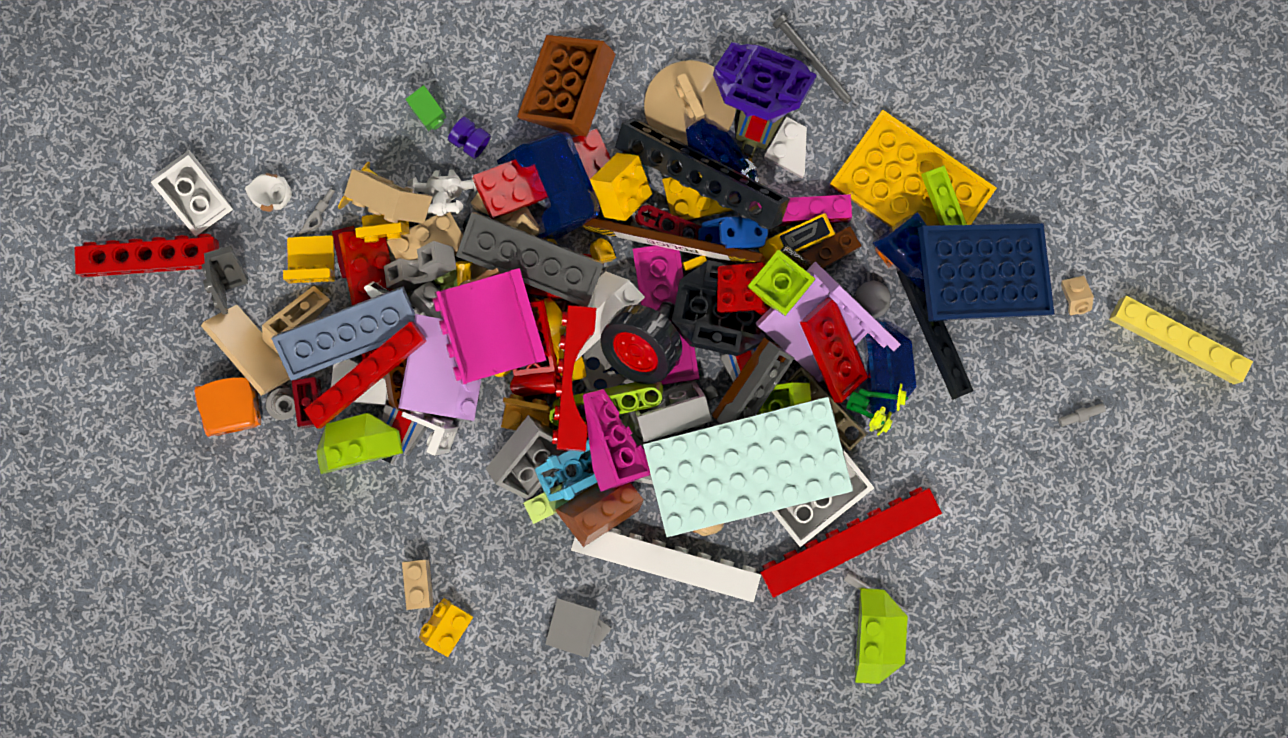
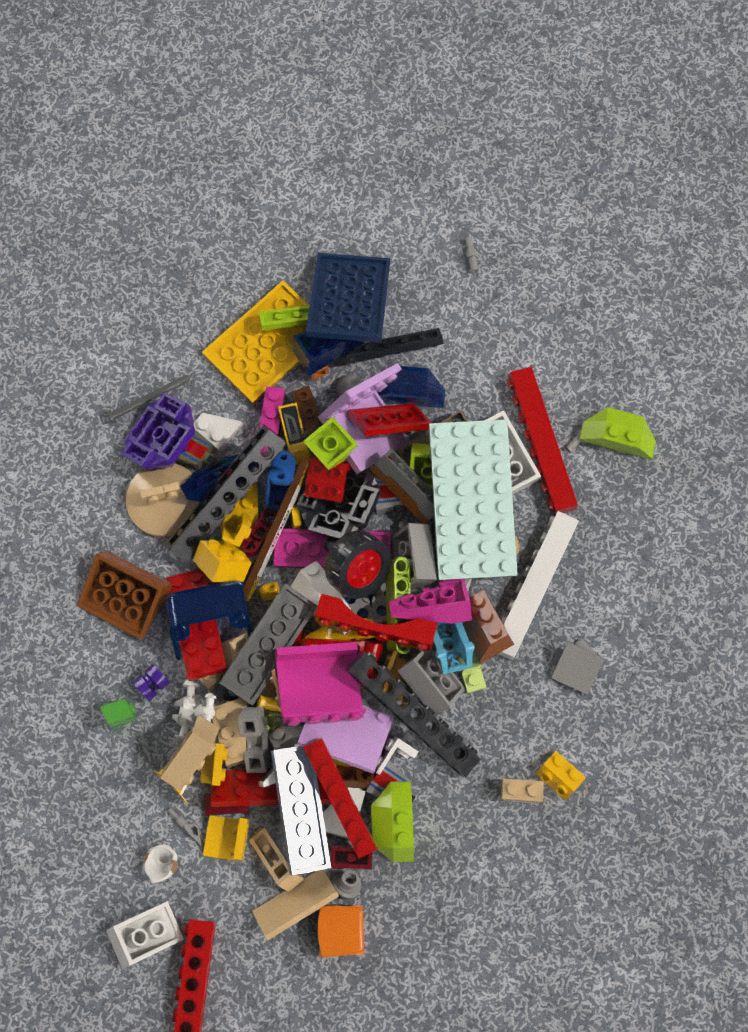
camera: 85 degrees left, 10 degrees down
(222, 273) = (224, 912): dark grey bracket -> none
(436, 509) = (358, 670): none -> black brick
(657, 194) = (242, 530): none -> yellow bracket
(859, 404) = (434, 411): plant -> none
(1078, 295) = (378, 238): tan bracket -> none
(1181, 340) = (427, 174): light yellow brick -> none

